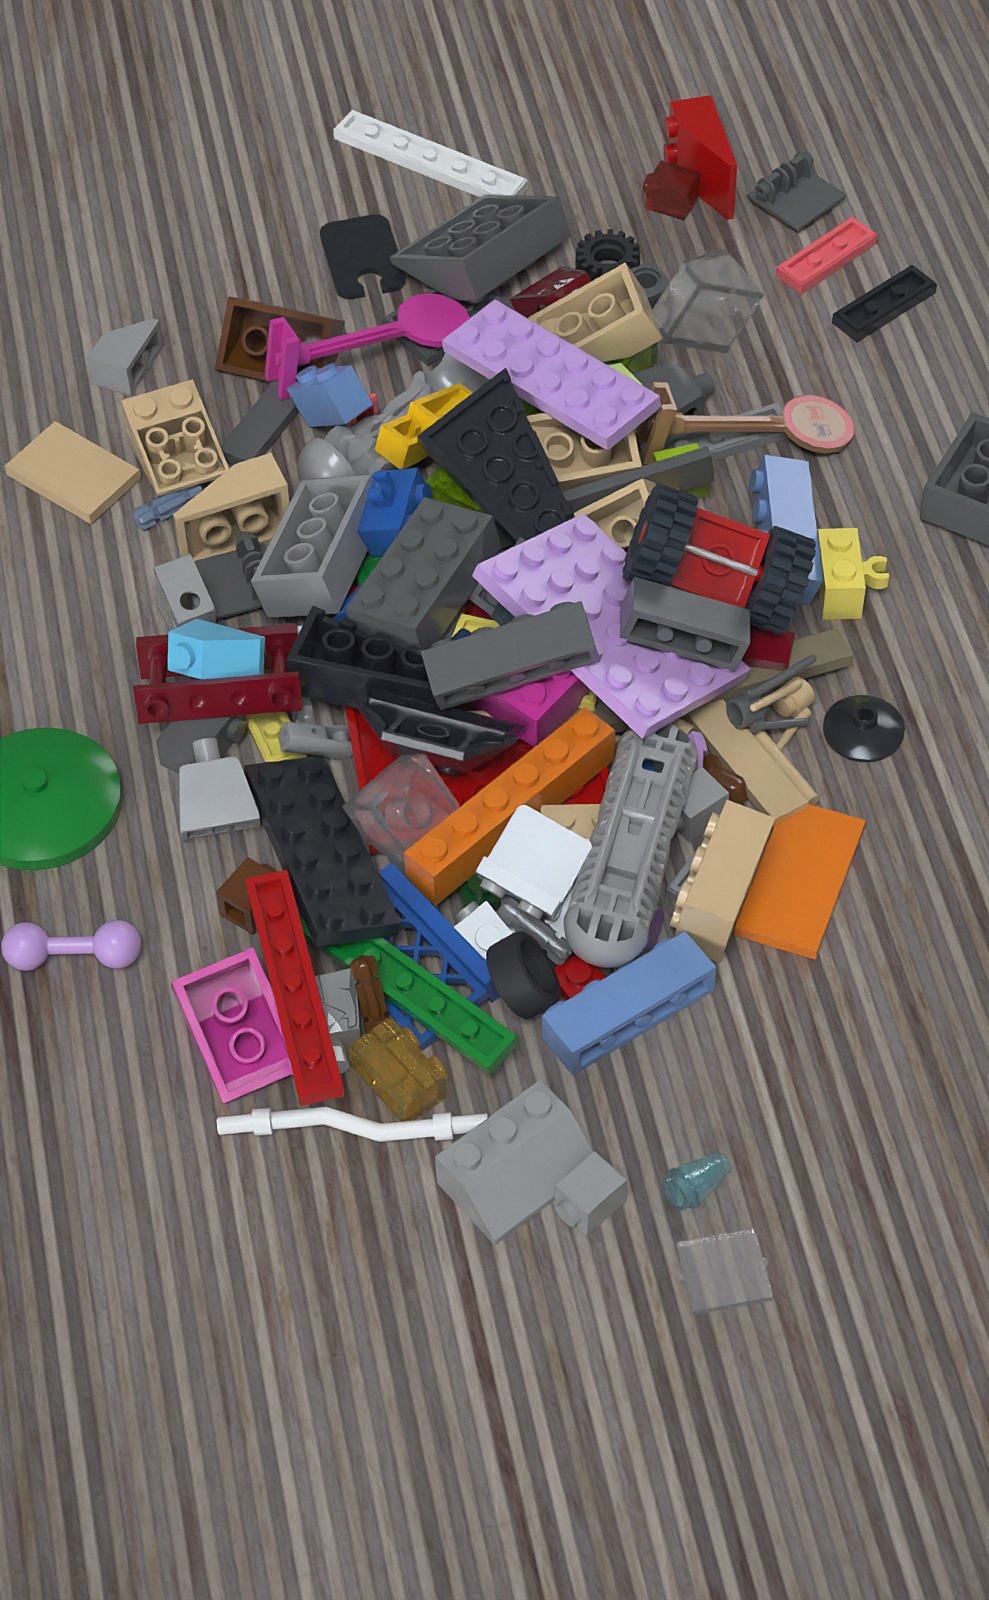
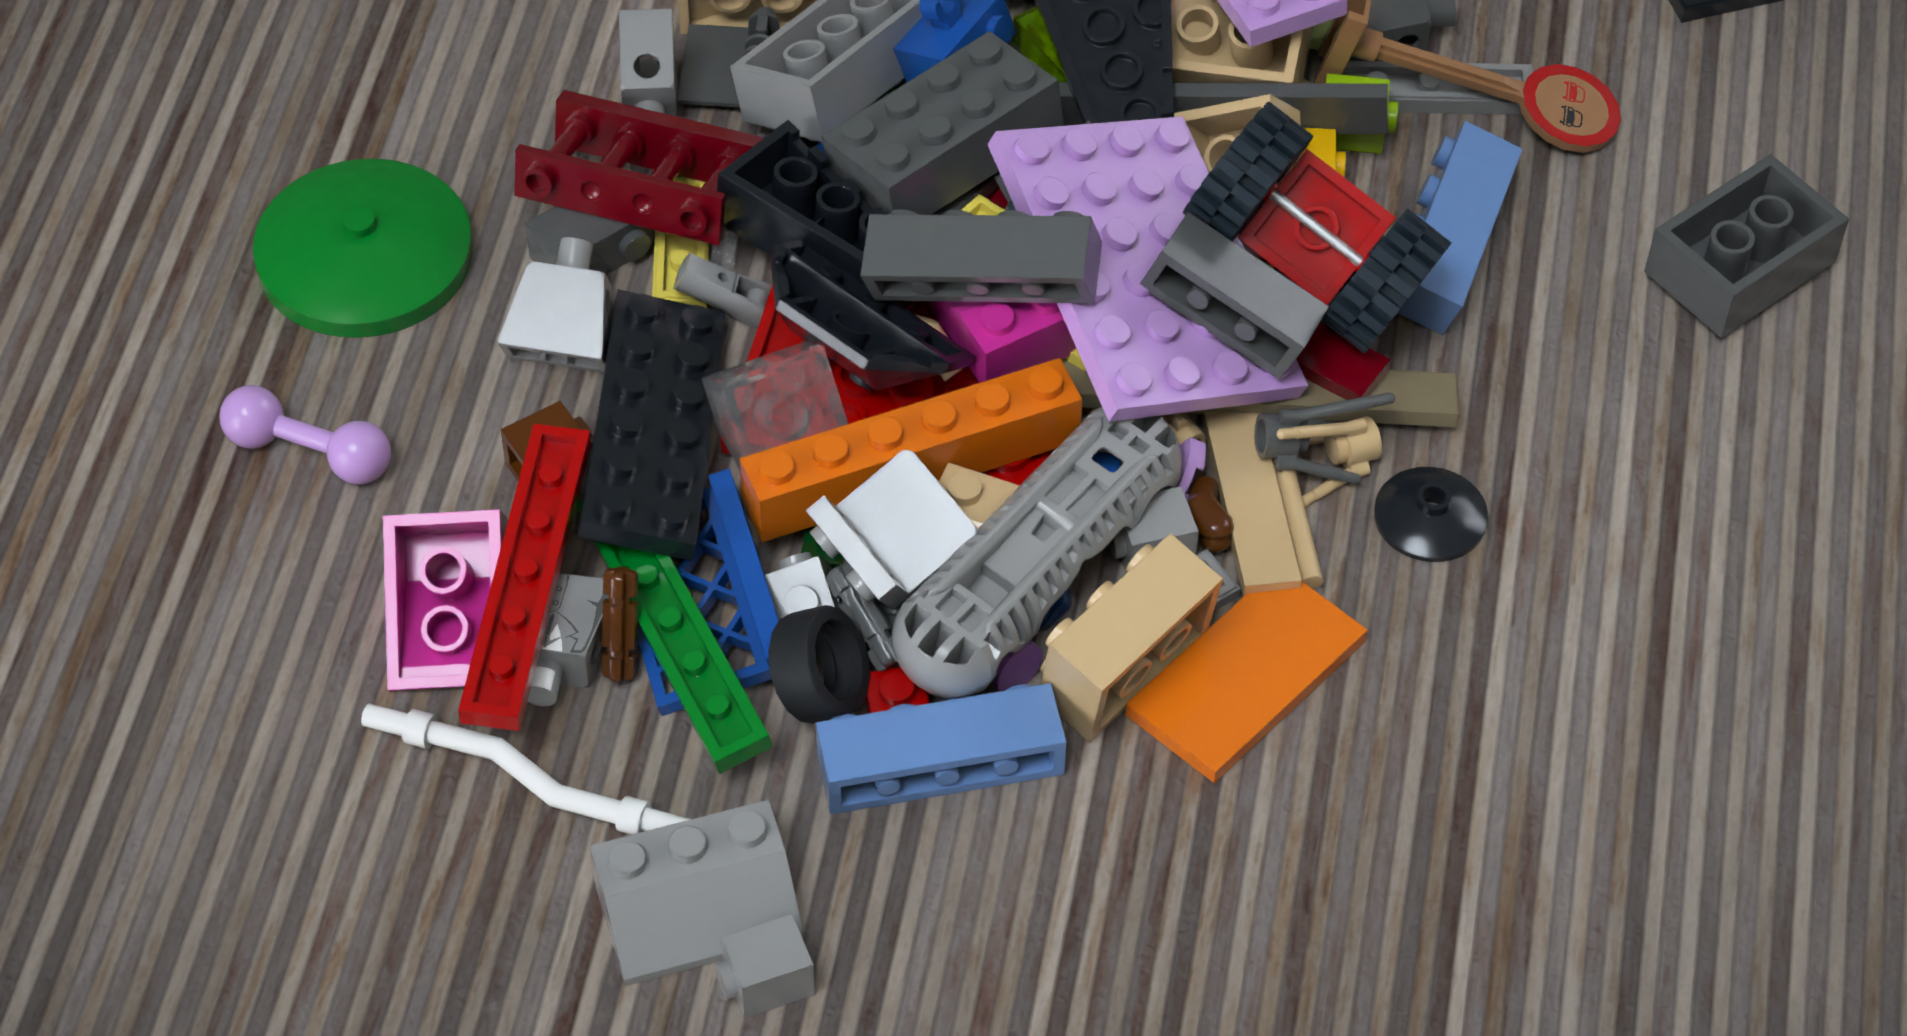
camera: 20 degrees right, 0 degrees up
(214, 651) = (635, 134): medium azure slope -> none
(398, 1071) = (612, 727): clear yellow brick -> none
(695, 1180) = (909, 999): clear light blue cone -> none
(846, 574) = (1501, 306): light yellow brick -> none

